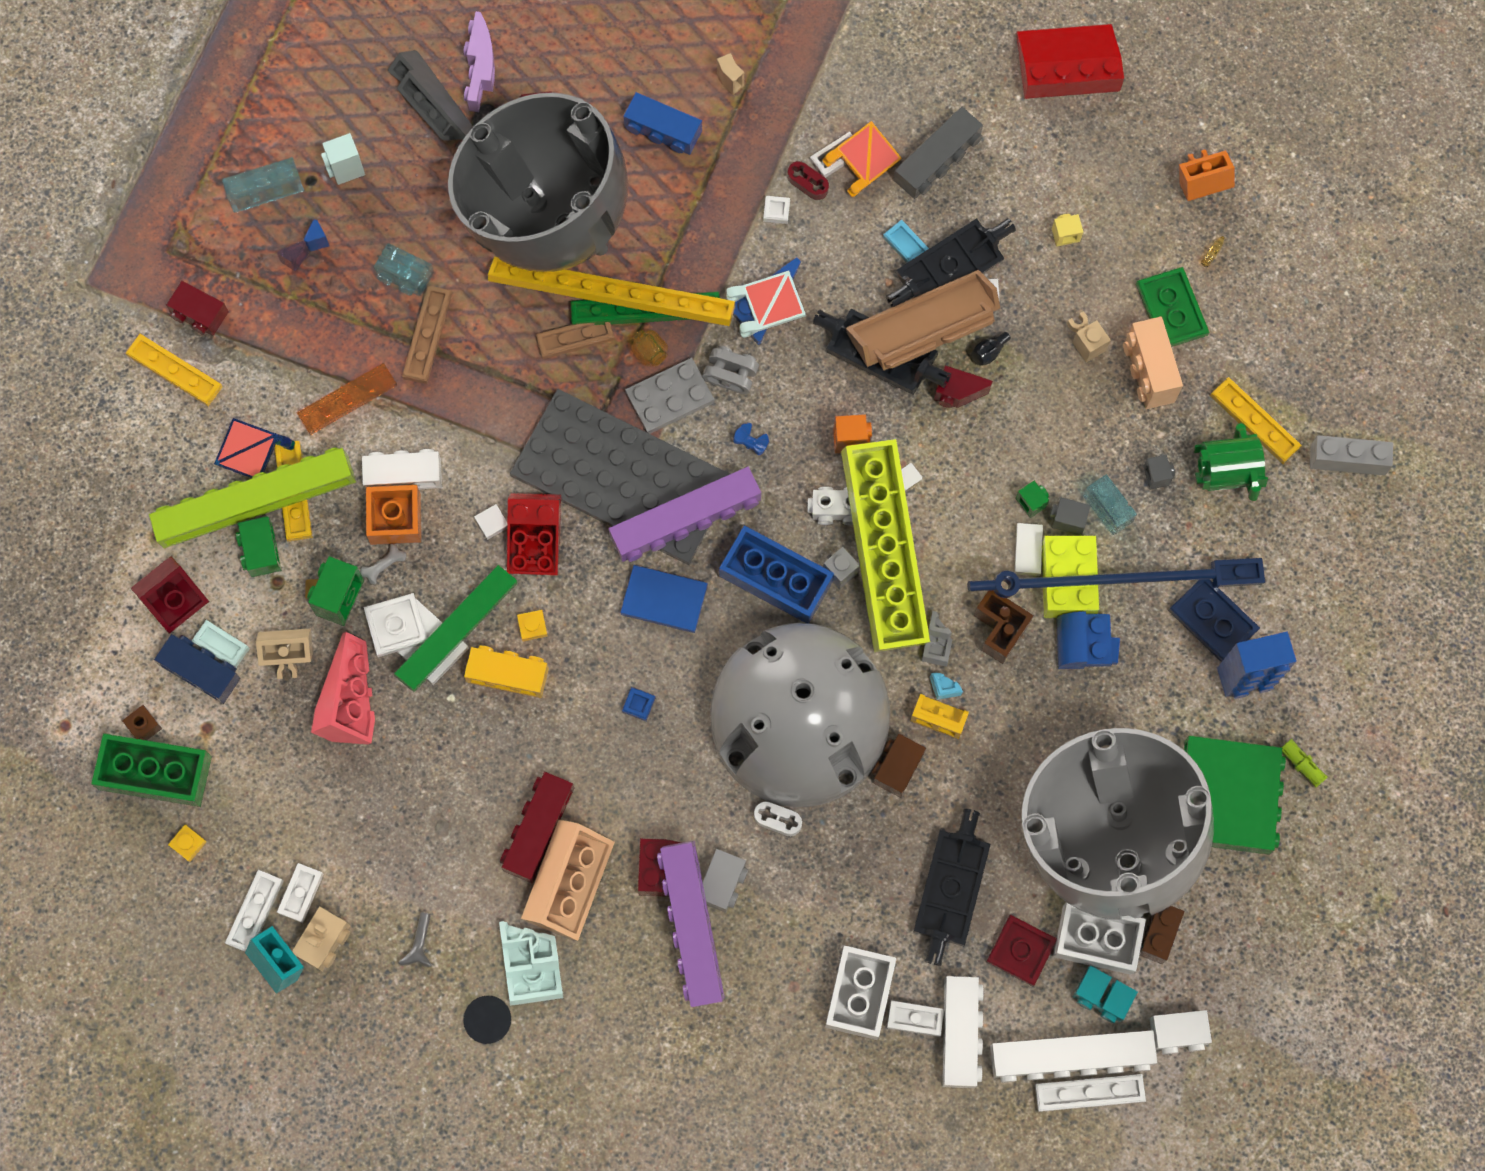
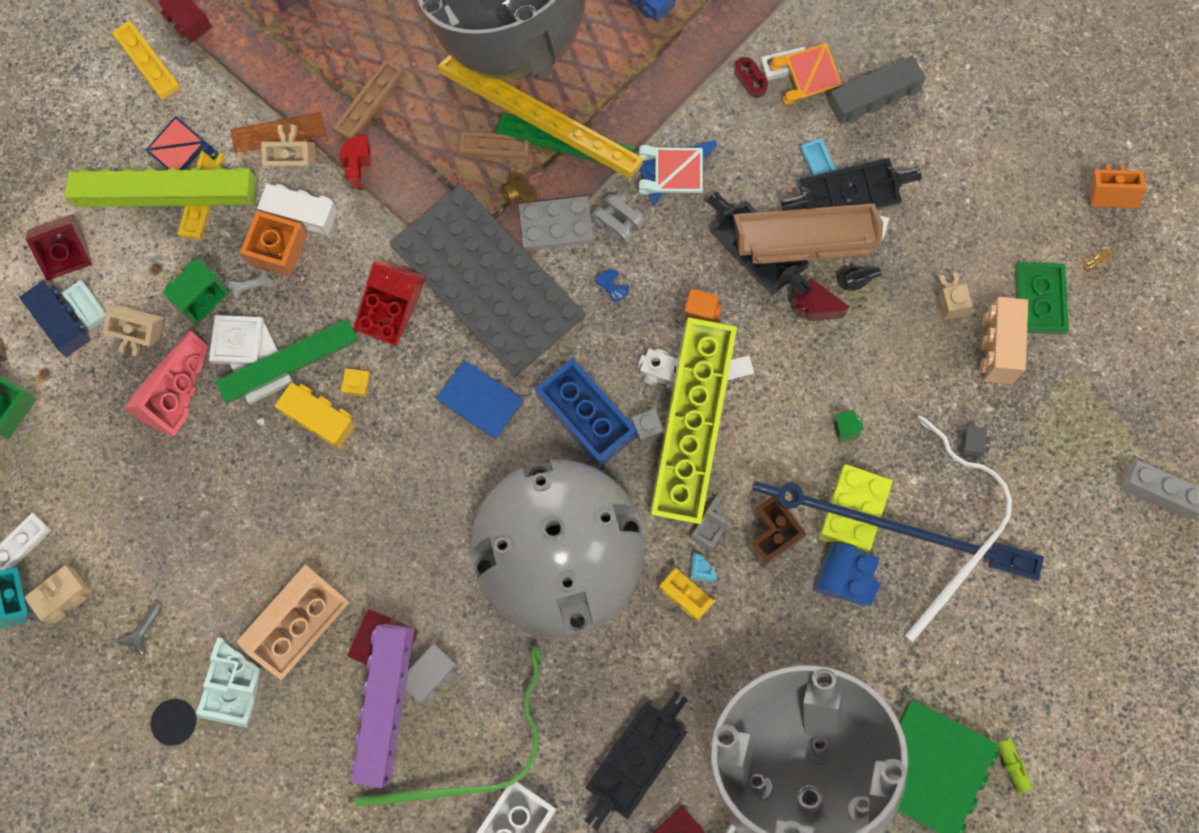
camera: 25 degrees right, 0 degrees up
(259, 547) = (150, 232): green brick -> none
(300, 893) = (58, 546): white plate -> none
(370, 416) = (288, 151): none -> tan brick
(403, 270) = (369, 38): clear light blue brick -> none
(437, 397) = (354, 156): none -> red brick
(491, 521) = (356, 279): white tile -> none
(537, 827) = (284, 563): dark red brick -> none
(618, 375) = (518, 190): none -> pearl gold piece
(638, 704) = (420, 486): blue tile -> none
(649, 348) = (554, 175): clear yellow head -> none
(685, 514) = (524, 330): medium lavender brick -> none
(764, 993) = (417, 795): none -> bright green piece
(776, 209) = (713, 93): white tile -> none
(776, 825) = (507, 631): white beam -> none
(899, 765) = (631, 626): reddish brown brick -> none
(1028, 549) = (826, 471): white tile -> none
(1067, 229) = (969, 195): light yellow plate -> none
(1069, 61) = (1026, 49): red slope -> none
(1069, 516) = (875, 453): dark grey brick -> none
(1109, 504) = (917, 456): clear light blue brick -> none
(1191, 606) = (949, 590): none -> white piece
(1213, 618) = (979, 600): dark blue tile -> none
(1232, 463) = (1047, 458): green container -> none
(1256, 420) = (1083, 427): yellow tile -> none
(1256, 665) = (1002, 657): blue brick -> none

